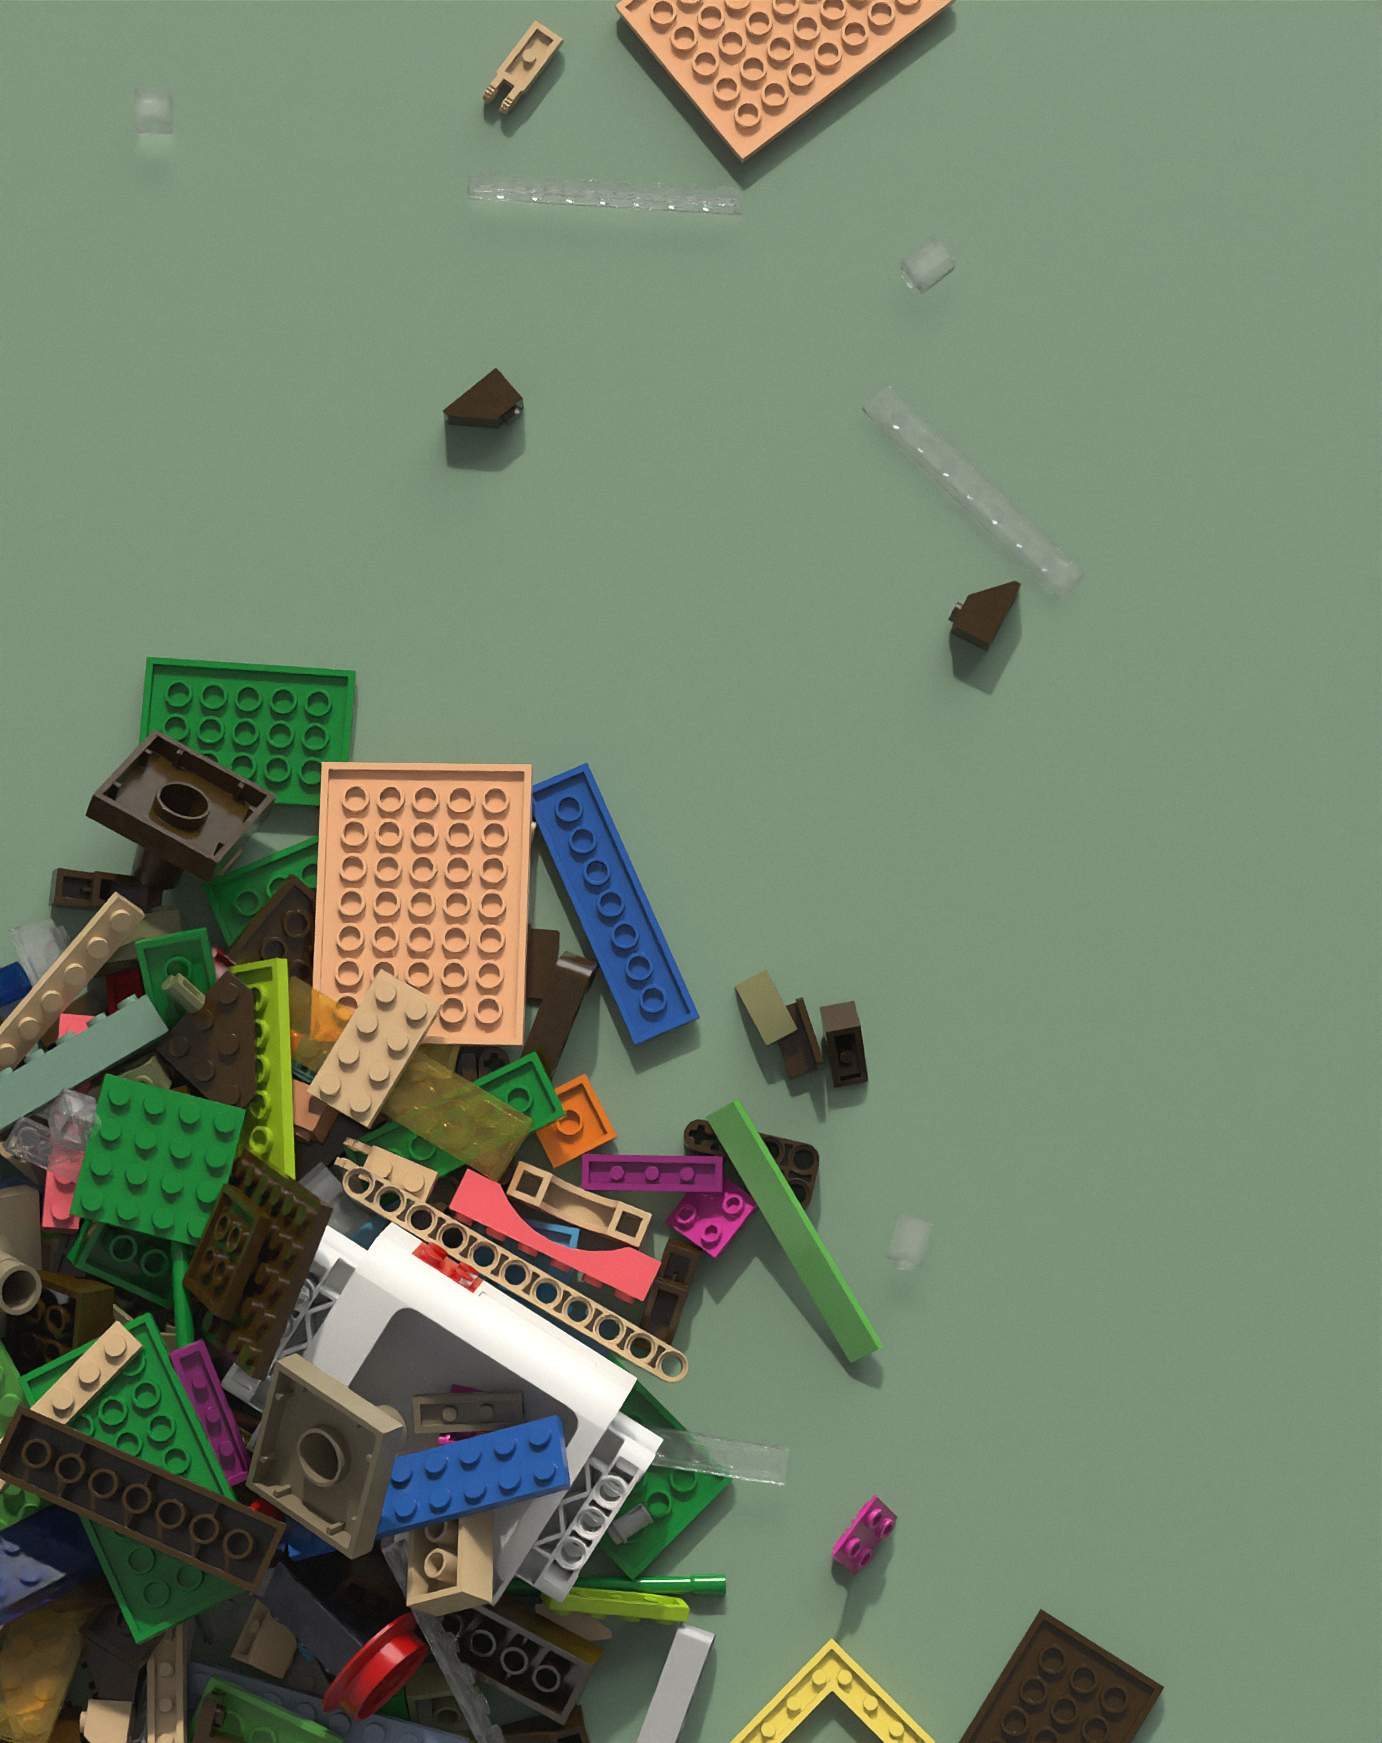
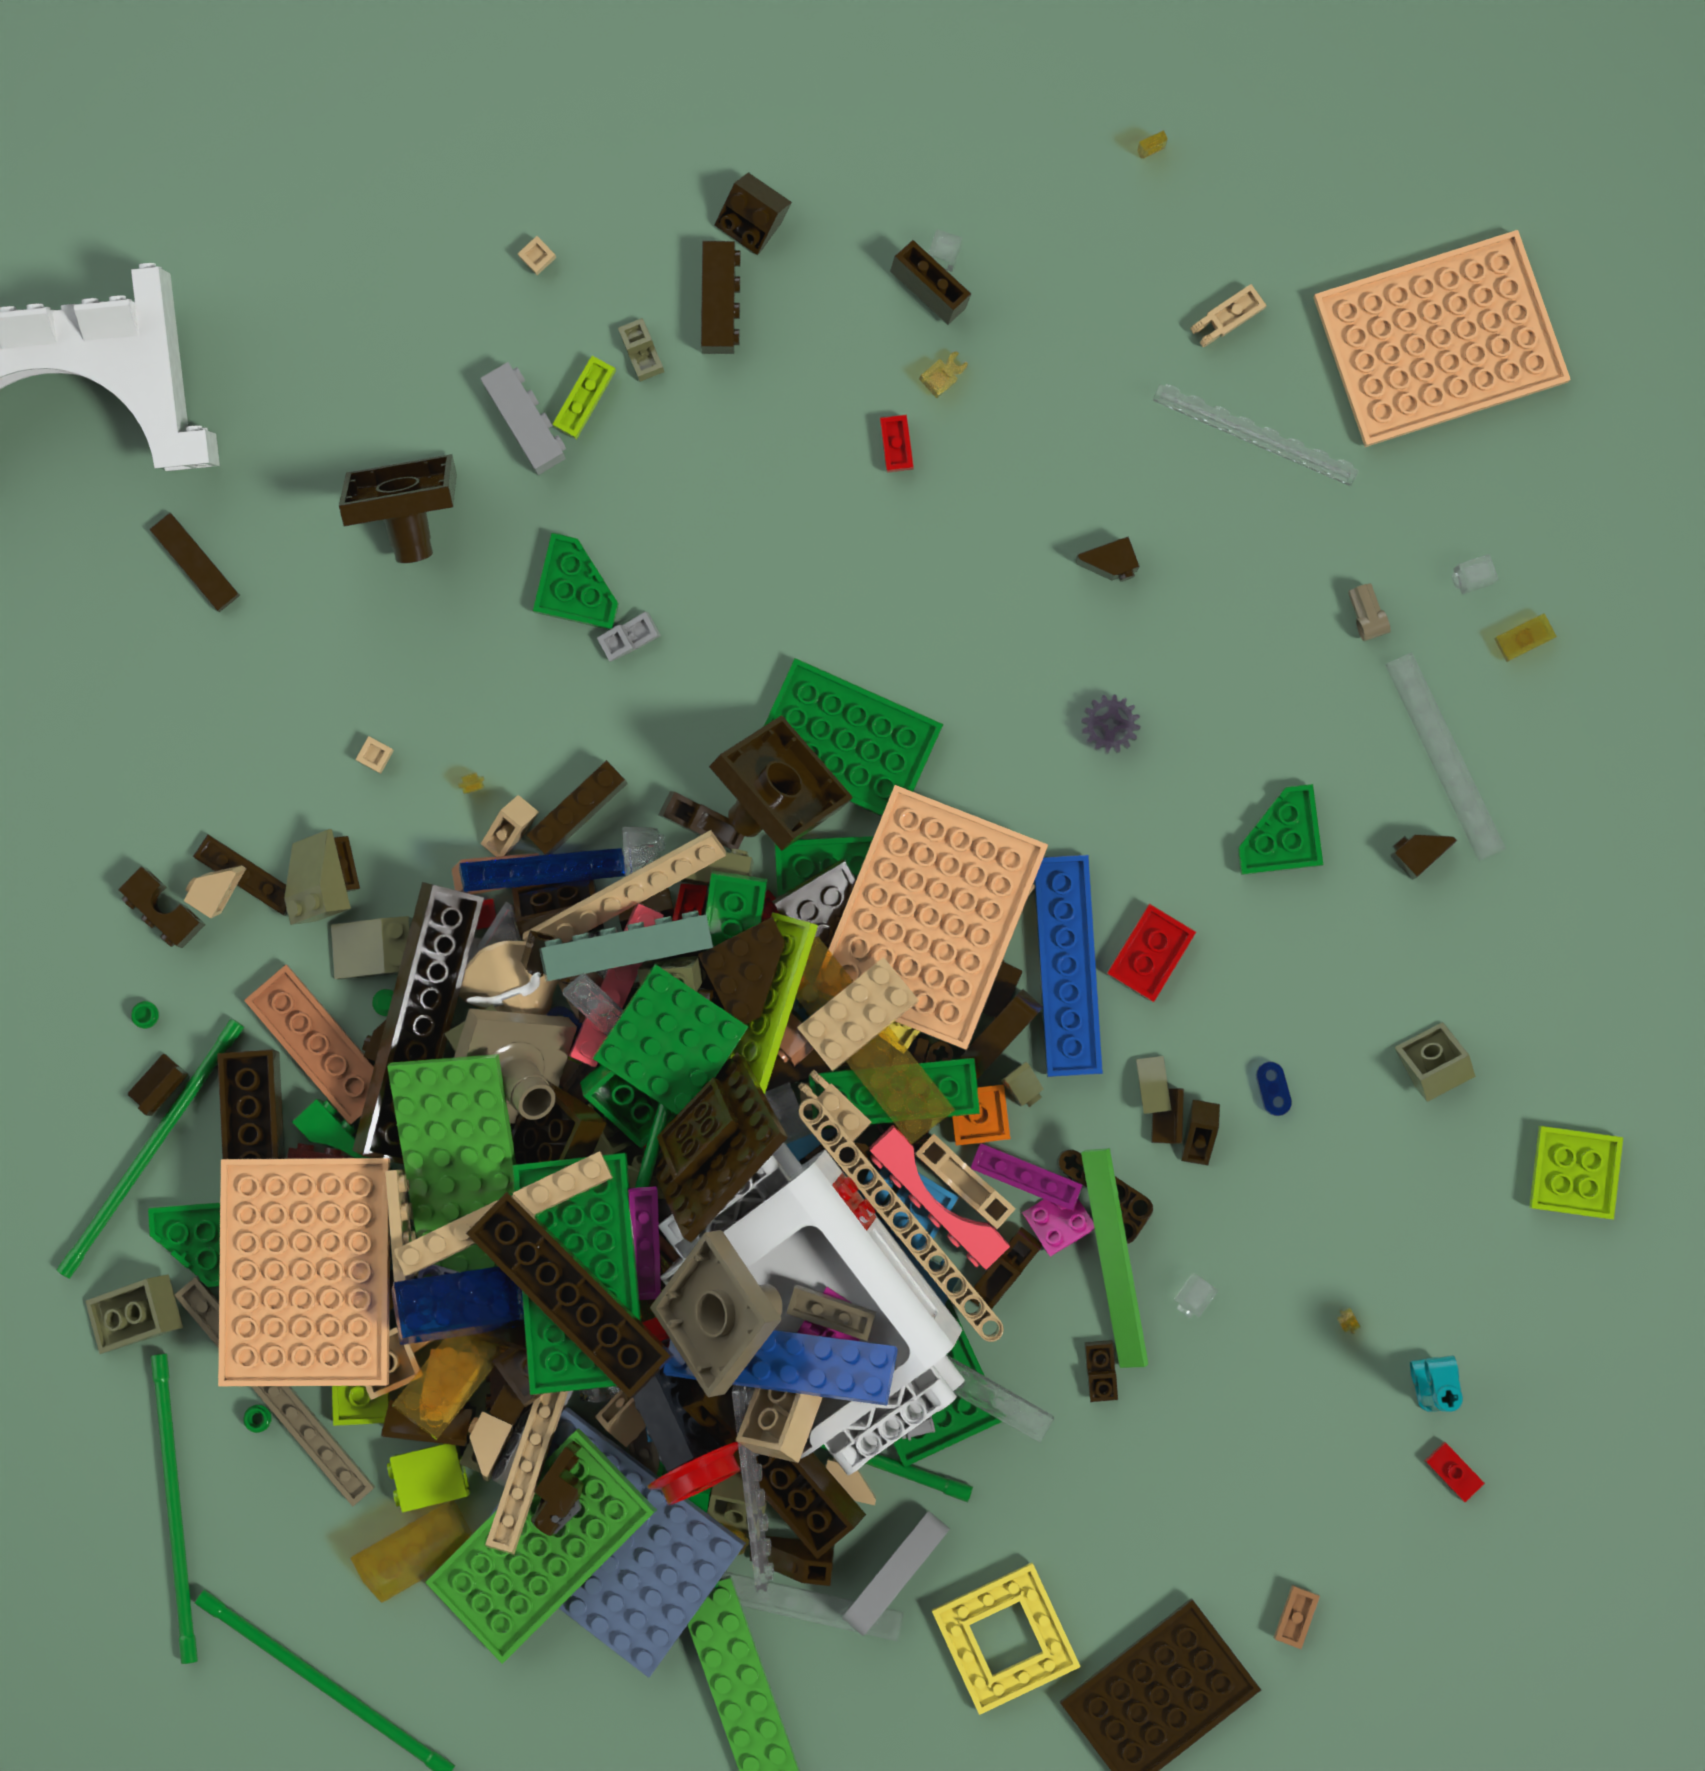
camera: 20 degrees right, 5 degrees up
(73, 1119) = (620, 989): clear brick -> none
(149, 154) = (930, 282): none -> dark brown brick
(178, 359) = (896, 443): none -> red plate
(184, 993) = (734, 924): olive slope -> none
(204, 260) = (941, 376): none -> clear yellow plate
(544, 599) = (1108, 735): none -> clear purple gear
(607, 1063) = (1023, 1085): none -> olive slope
(626, 1605) = (893, 1485): lime plate -> none
(706, 852) = (1151, 953): none -> red plate
(814, 654) = (1285, 835): none -> green plate
(822, 361) = (1370, 619): none -> dark tan piece
(829, 1375) = (1101, 1371): none -> dark brown slope
(872, 1524) = (1095, 1493): dark pink hinge -> none
(913, 959) = (1273, 1089): none -> clear blue plate
(1015, 317) = (1525, 637): none -> clear yellow plate
(1094, 856) = (1435, 1061): none -> olive slope
(1105, 1204) = (1348, 1321): none -> clear yellow plate
(1174, 1583) = (1296, 1617): none -> medium nougat plate
(1232, 1233) = (1437, 1383): none -> teal piece
(1300, 1338) = (1454, 1472): none -> red plate
(1311, 926) = (1576, 1172): none -> lime plate

